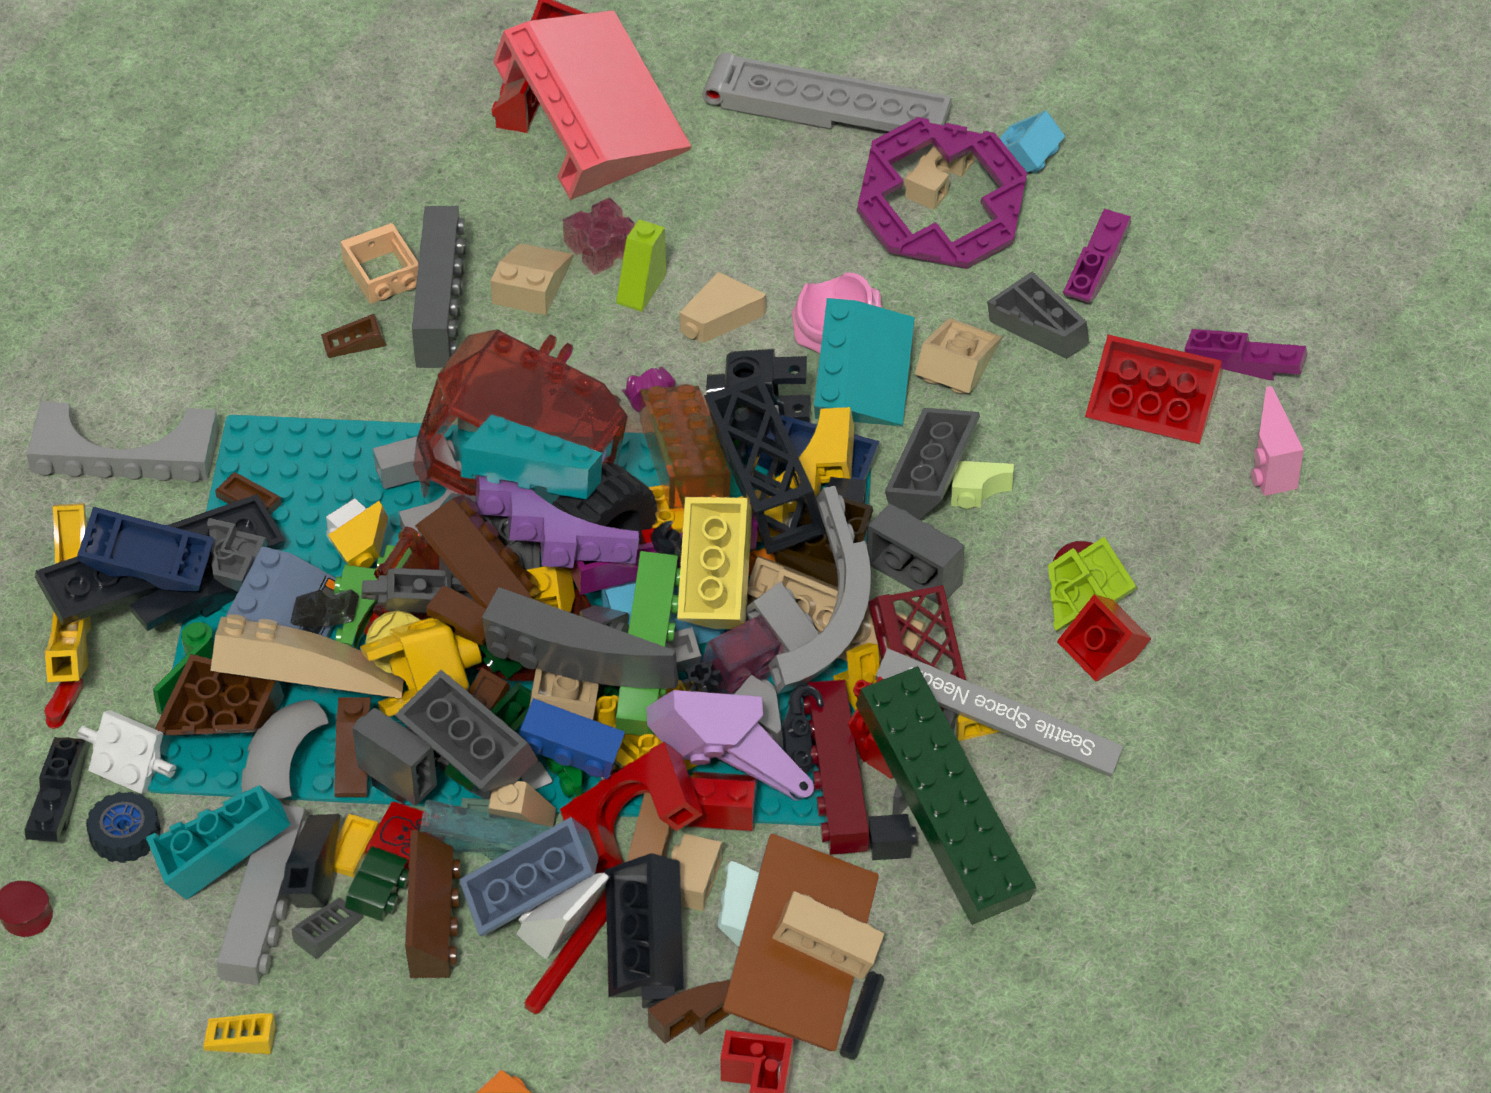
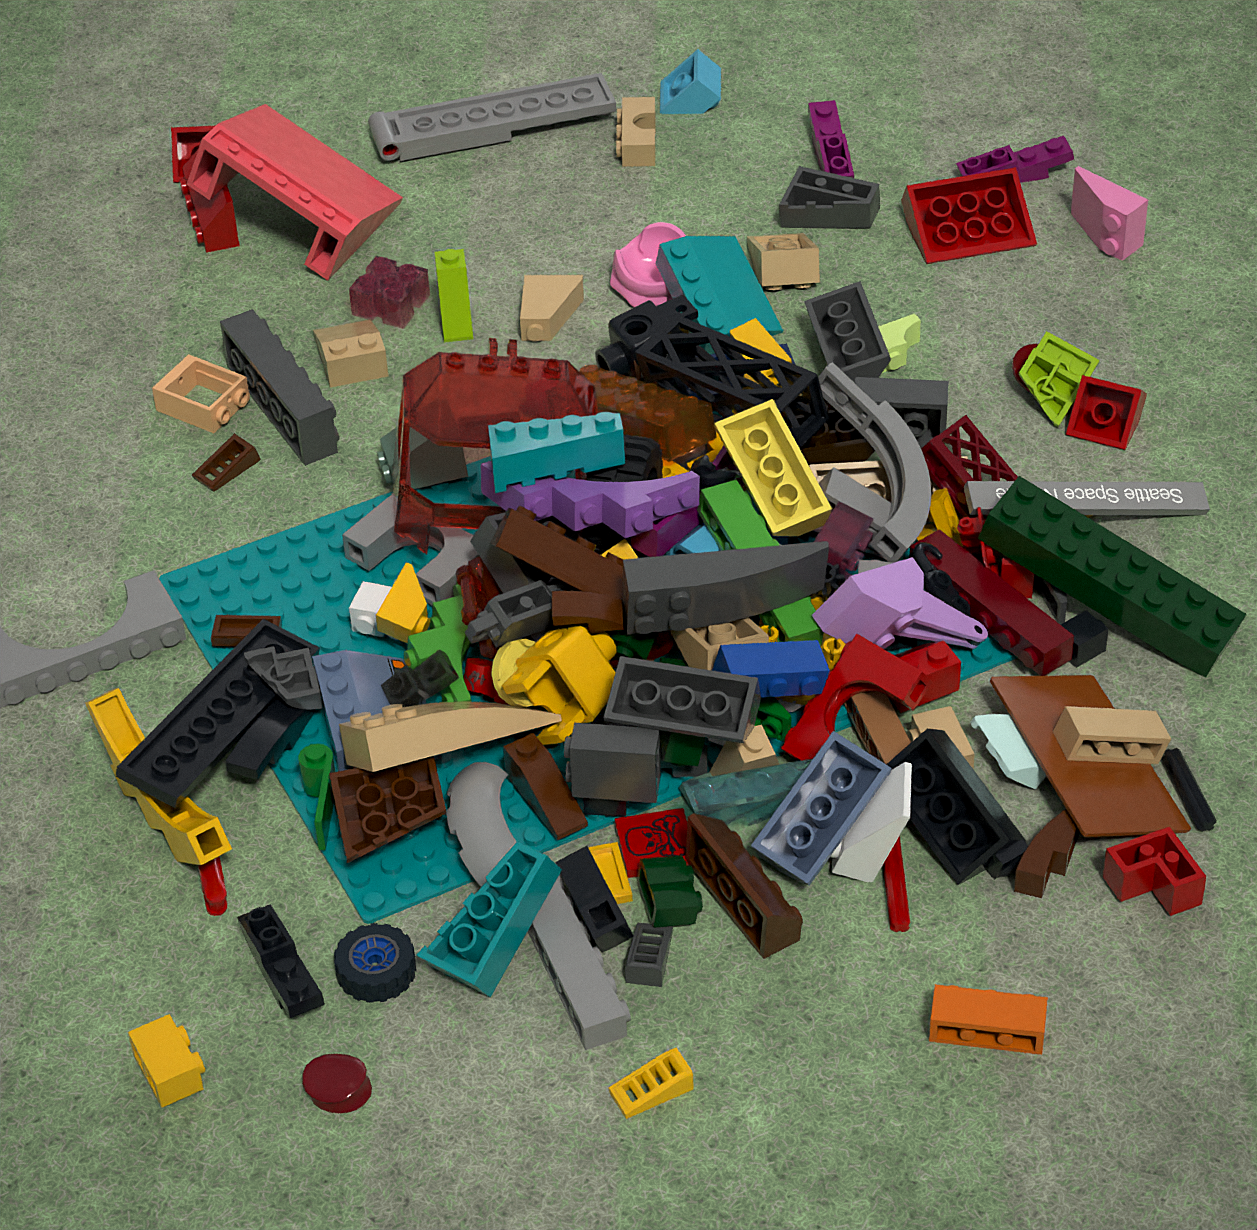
camera: 30 degrees left, 5 degrees down
(126, 751) = (325, 893): white plate -> none
(144, 550) = (210, 703): dark blue slope -> none
(932, 242) = (681, 185): magenta plate -> none

